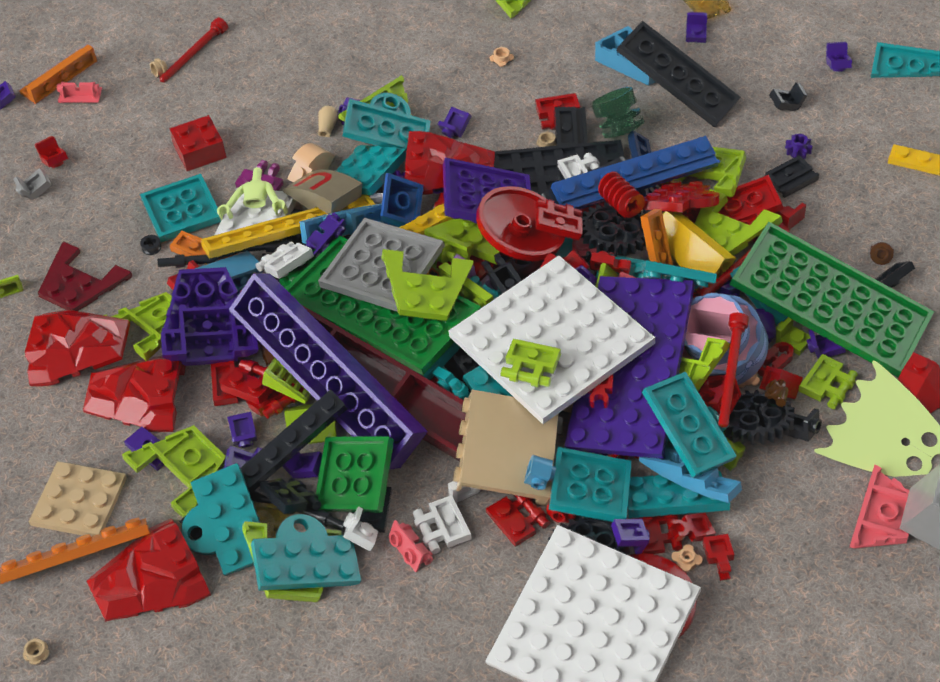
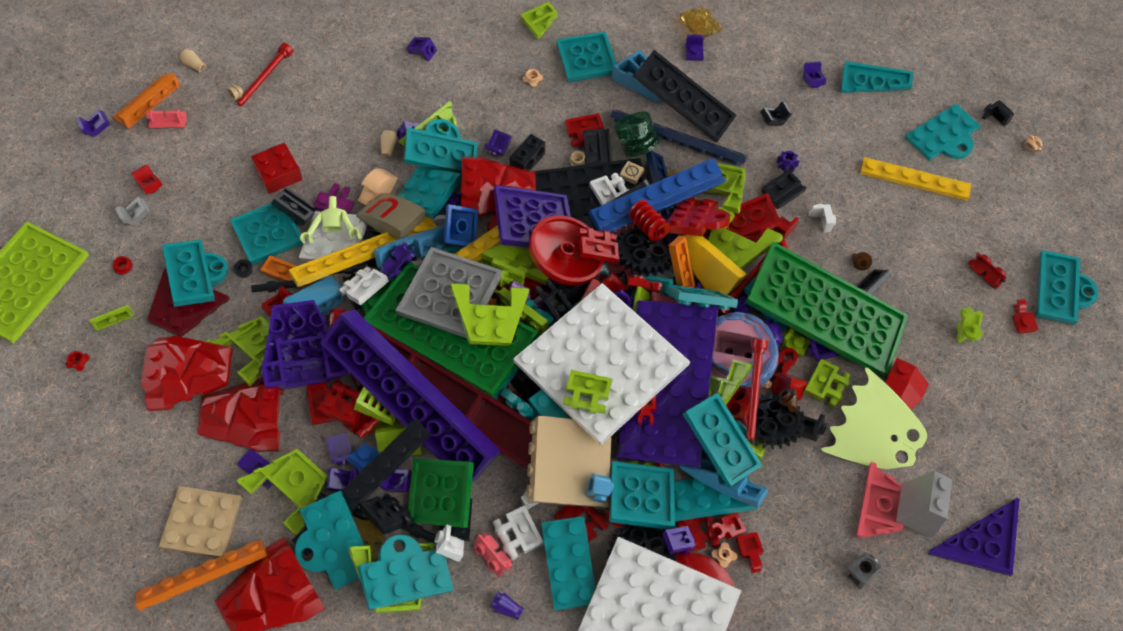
camera: 10 degrees left, 10 degrees up
(15, 238) = (120, 261): none -> red plate
(93, 245) = (192, 272): none -> teal plate
(111, 34) = (190, 59): none -> tan cone
(213, 180) = (294, 206): none -> black plate
(265, 434) = (362, 456): none -> blue bracket
(376, 22) = (422, 46): none -> dark purple bracket
(419, 598) = (506, 606): none -> dark purple cone
(489, 131) = (528, 153): none -> black brick
(498, 556) = (568, 563): none -> teal plate
(566, 35) = (586, 56): none -> teal plate
(608, 152) = (631, 172): none -> tan tile
(679, 124) = (688, 140): none -> dark blue plate
(839, 201) = (825, 213): none -> white bracket
(850, 588) = (858, 577): none -> flat silver brick

